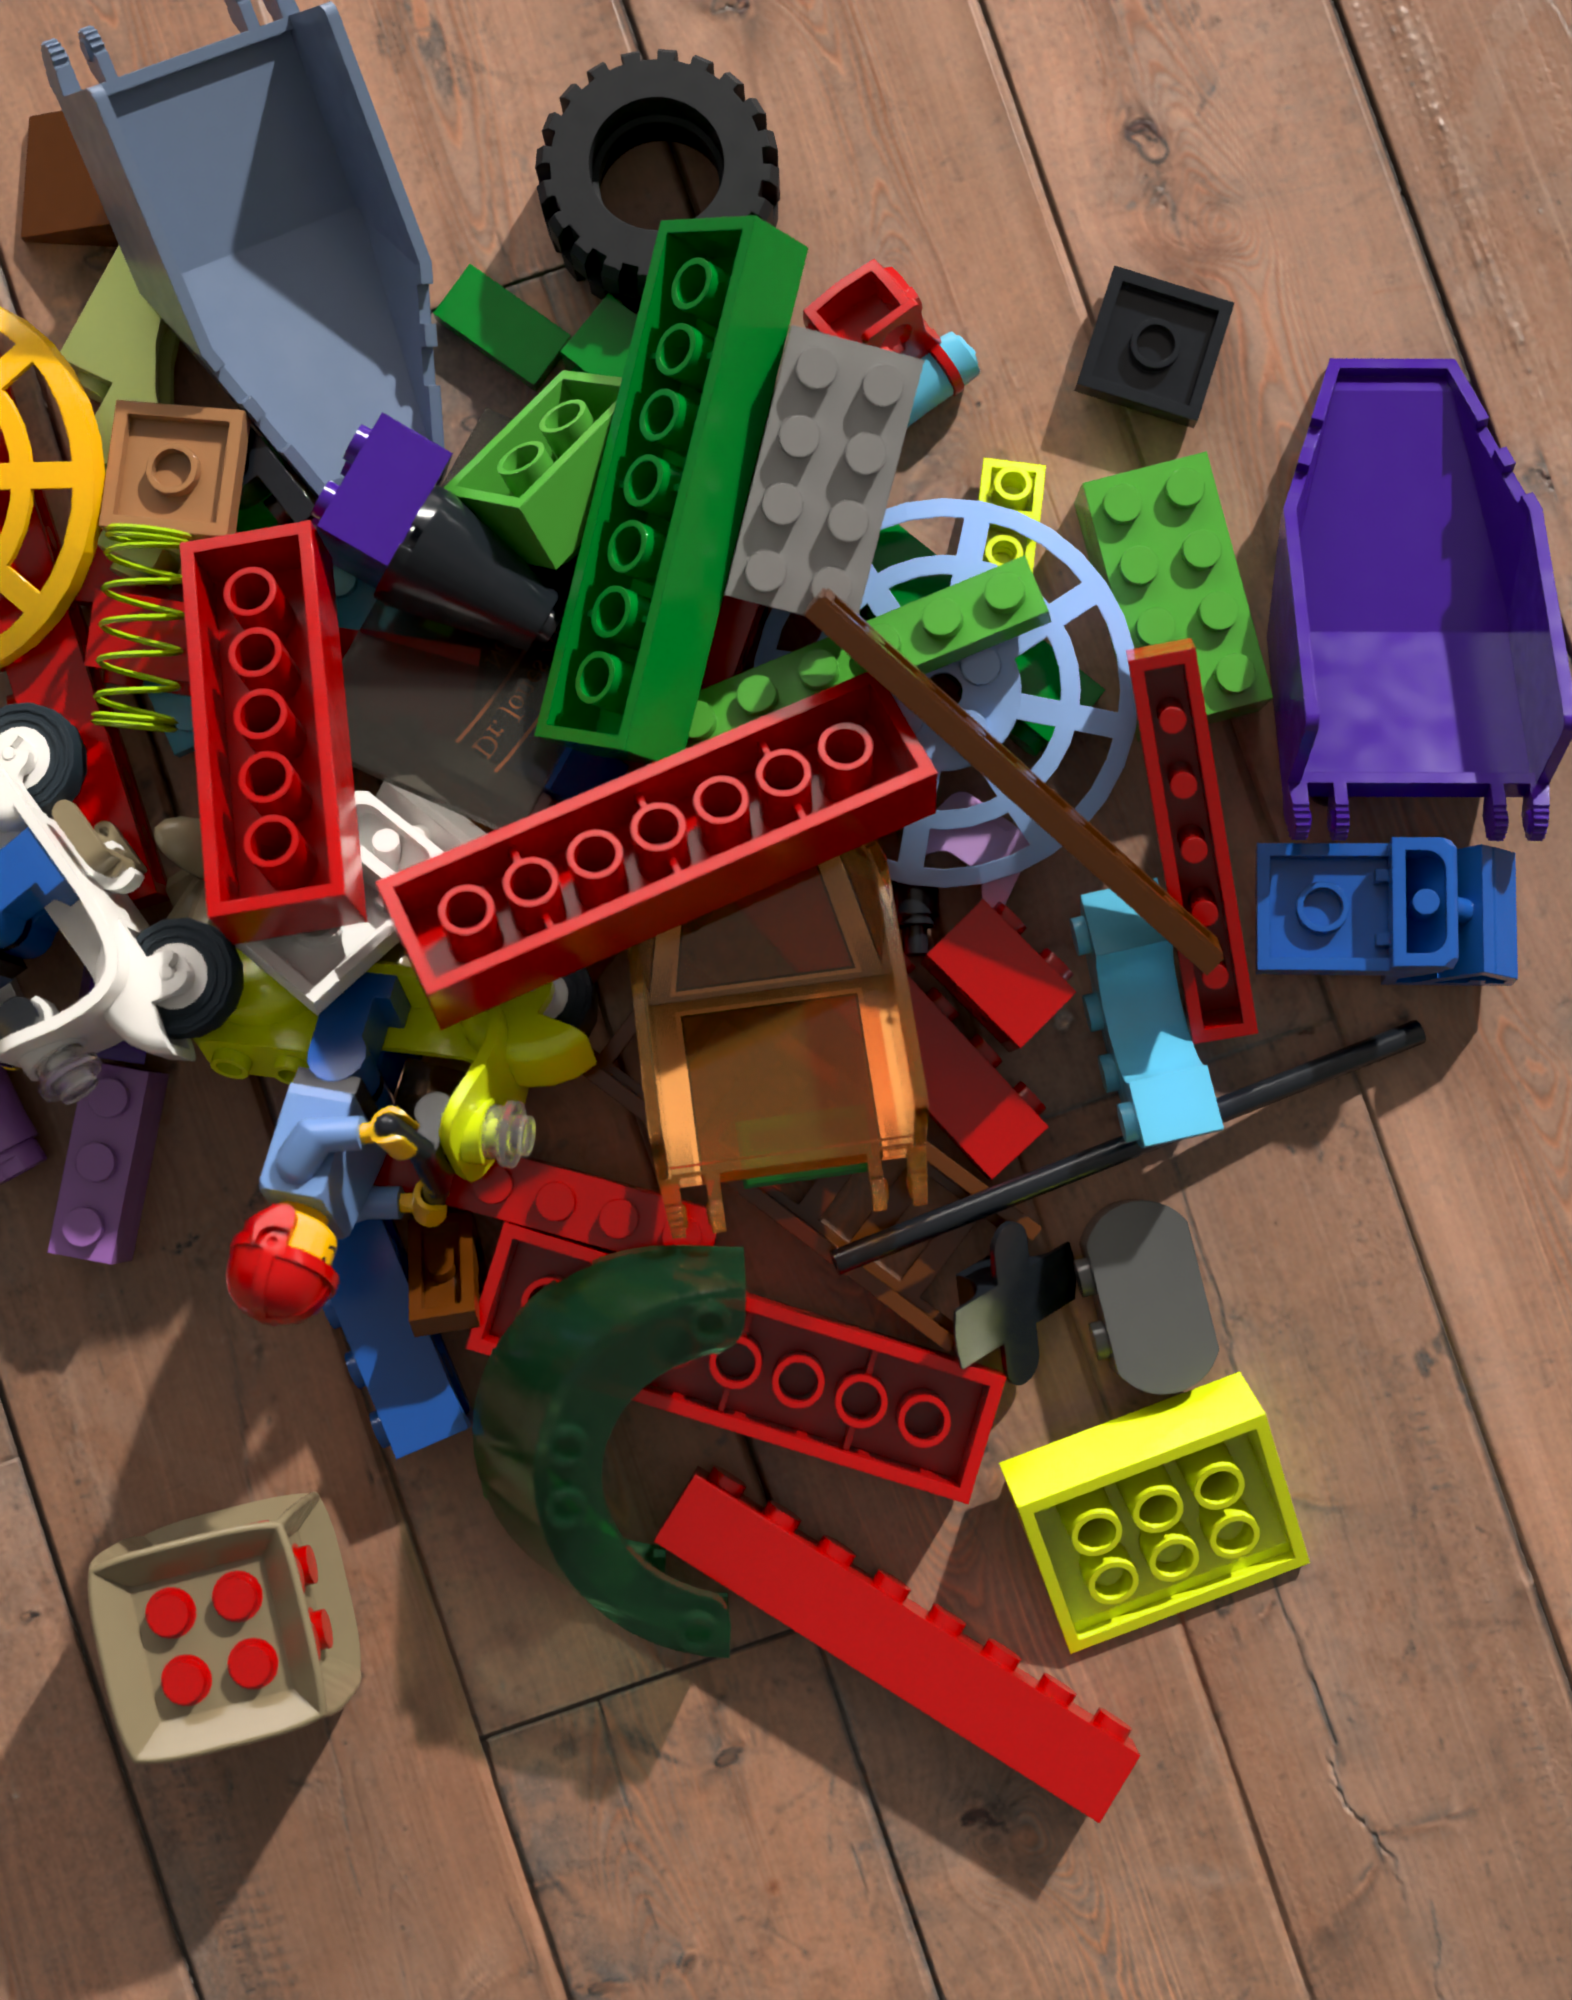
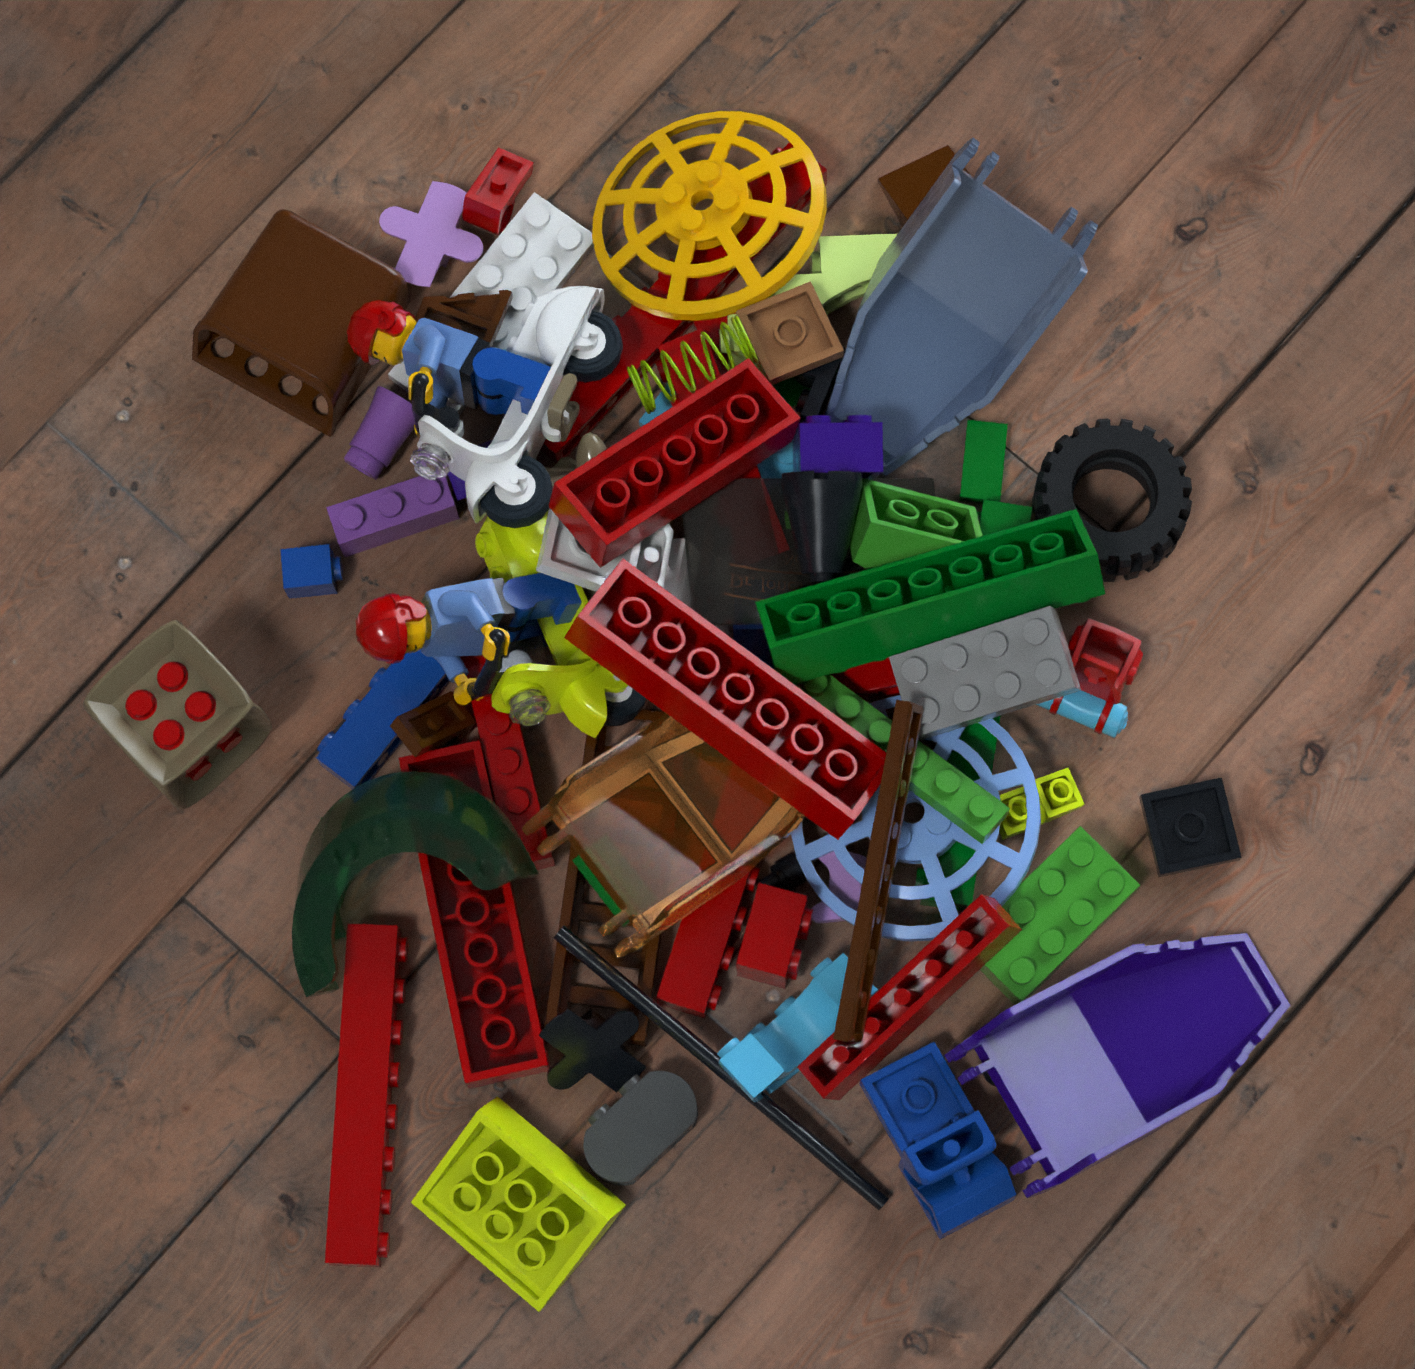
camera: 60 degrees right, 10 degrees down
(125, 1320) = (310, 571): none -> blue brick

